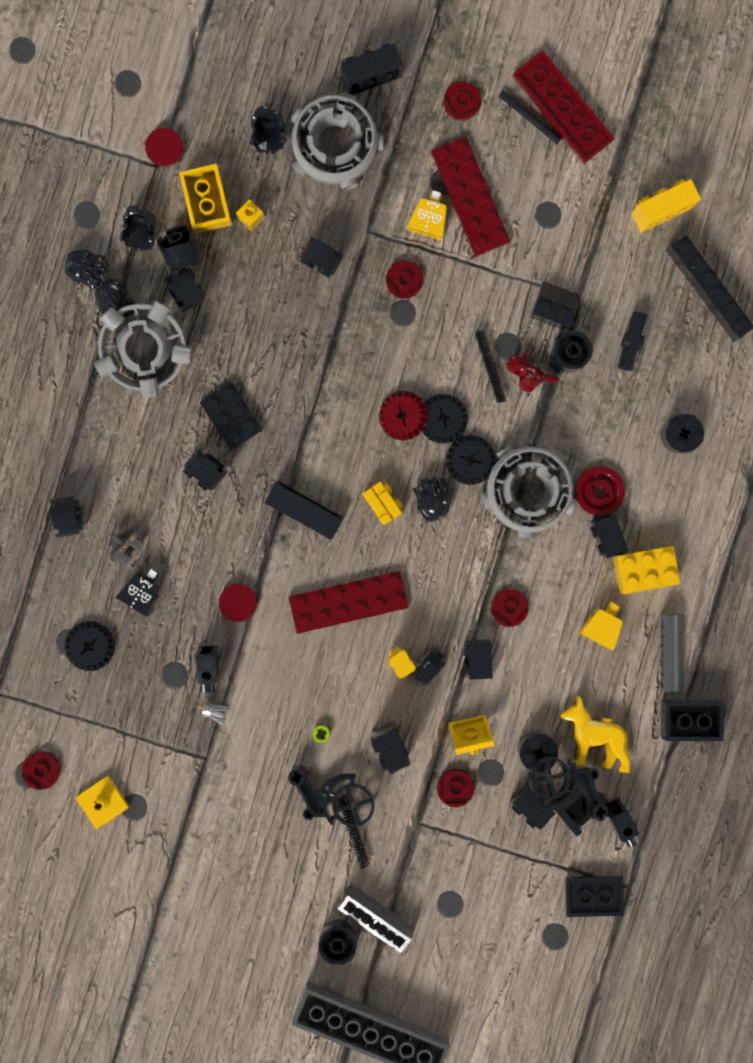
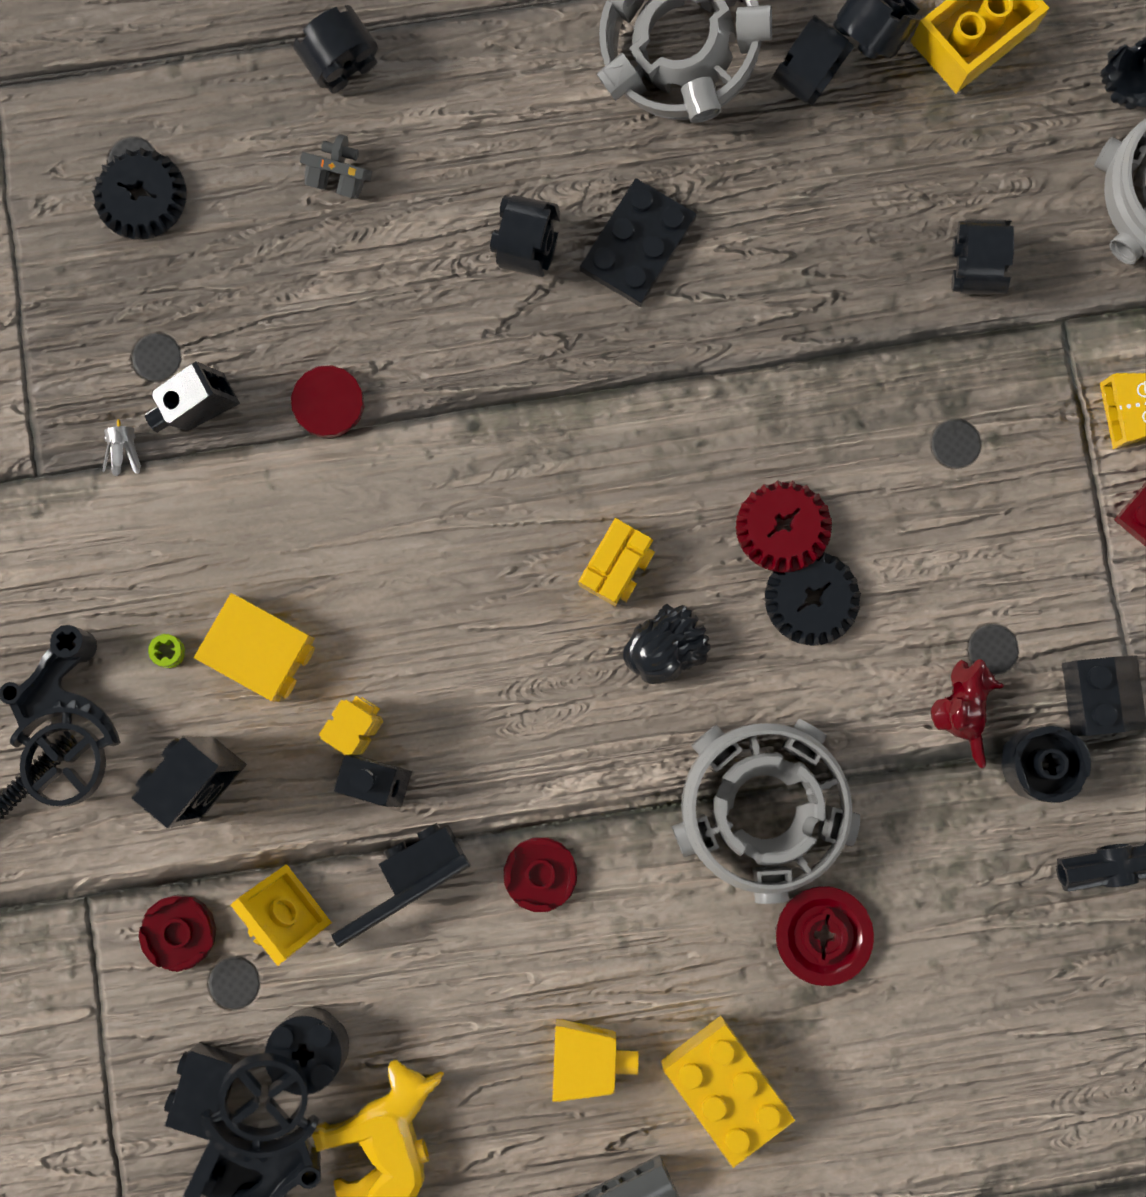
camera: 70 degrees right, 5 degrees down
(141, 592) = (267, 232): black torso -> none
(250, 215) = (989, 110): yellow brick -> none
(304, 510) = (538, 436): black brick -> none
(341, 690) = (255, 648): none -> yellow brick
(348, 602) = (417, 588): dark red plate -> none
(404, 279) = (1014, 418): dark red tile -> none
(459, 467) = (744, 664): black gear -> none
(491, 676) = (401, 900): none -> black bar
(499, 398) = (971, 614): black piece -> none
(609, 536) = (752, 992): black brick -> none
(693, 433) = (1023, 1042): black brick -> none

